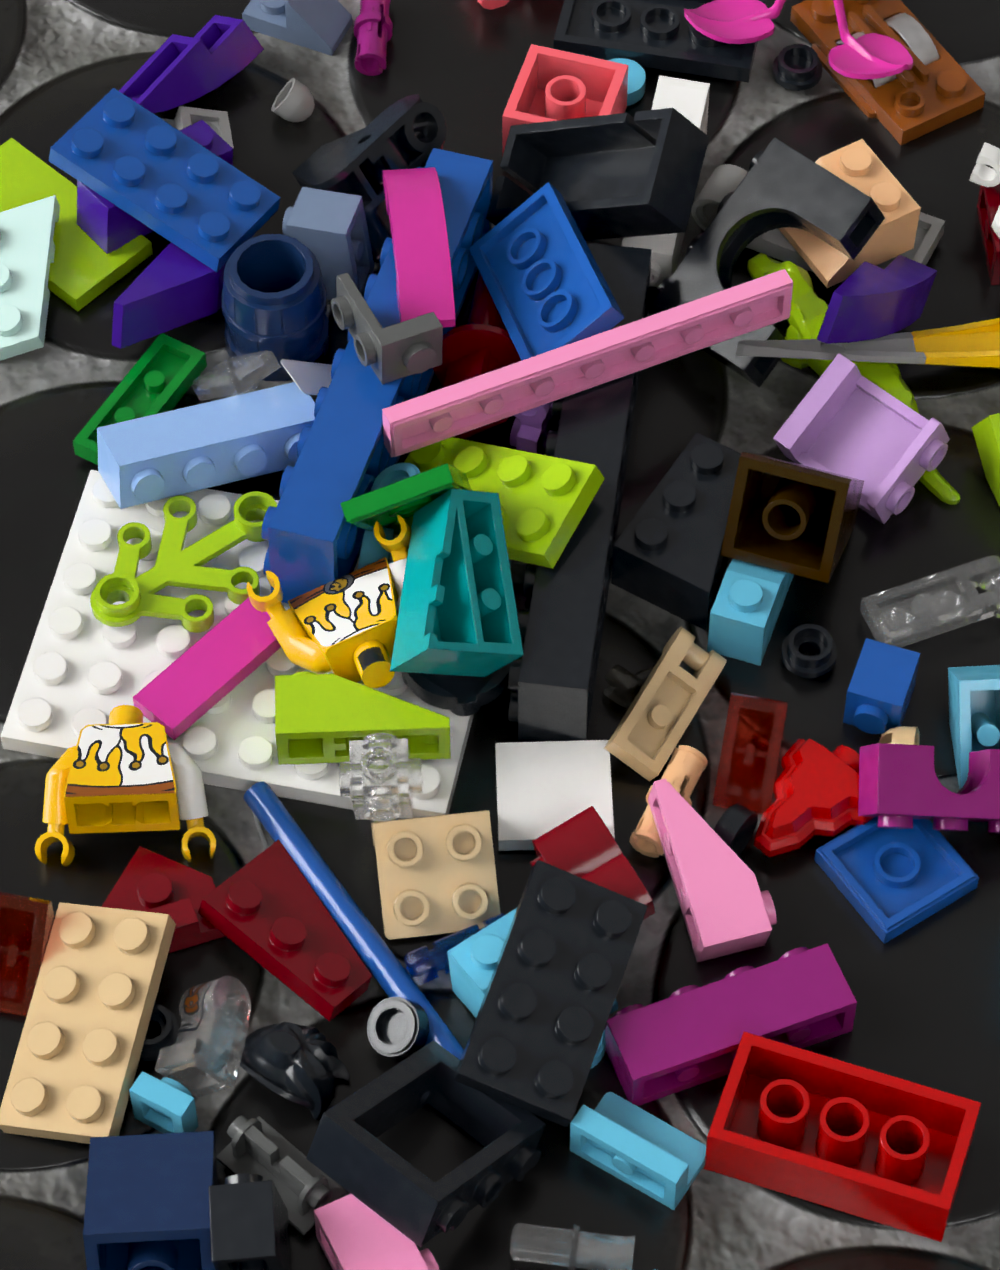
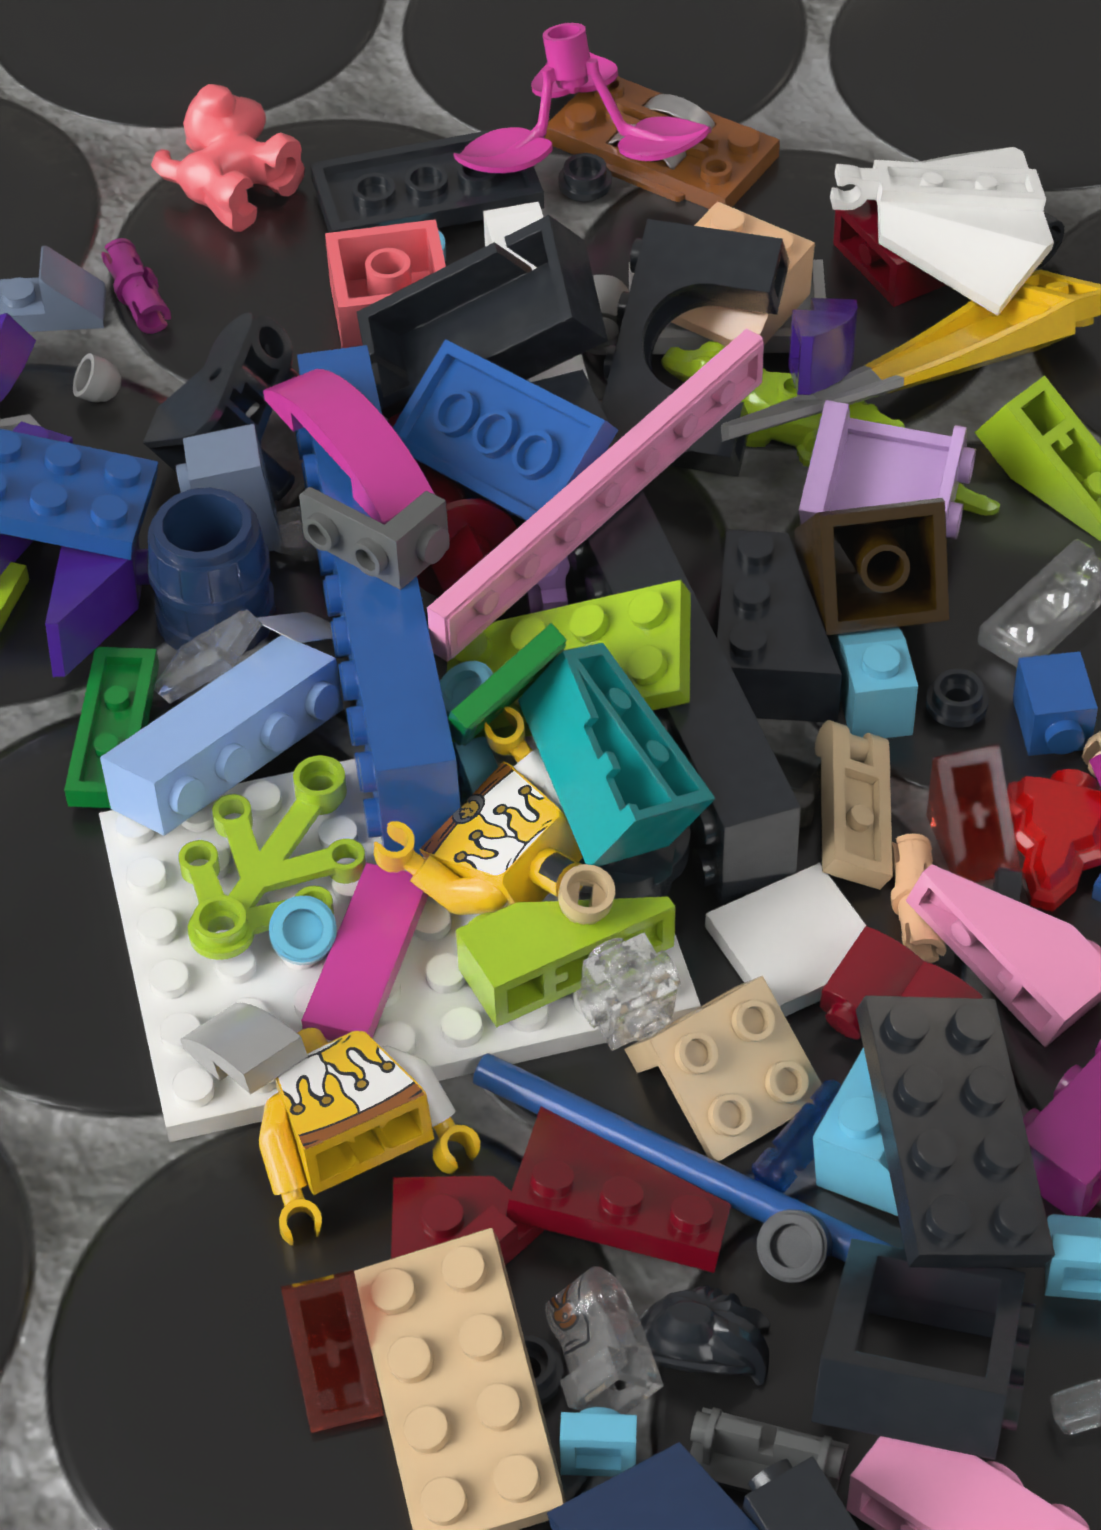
camera: 25 degrees left, 5 degrees down
(76, 700) = (245, 1046): none -> light grey slope
(173, 627) = (302, 930): none -> medium azure tile
(368, 684) = (601, 897): none -> tan hinge

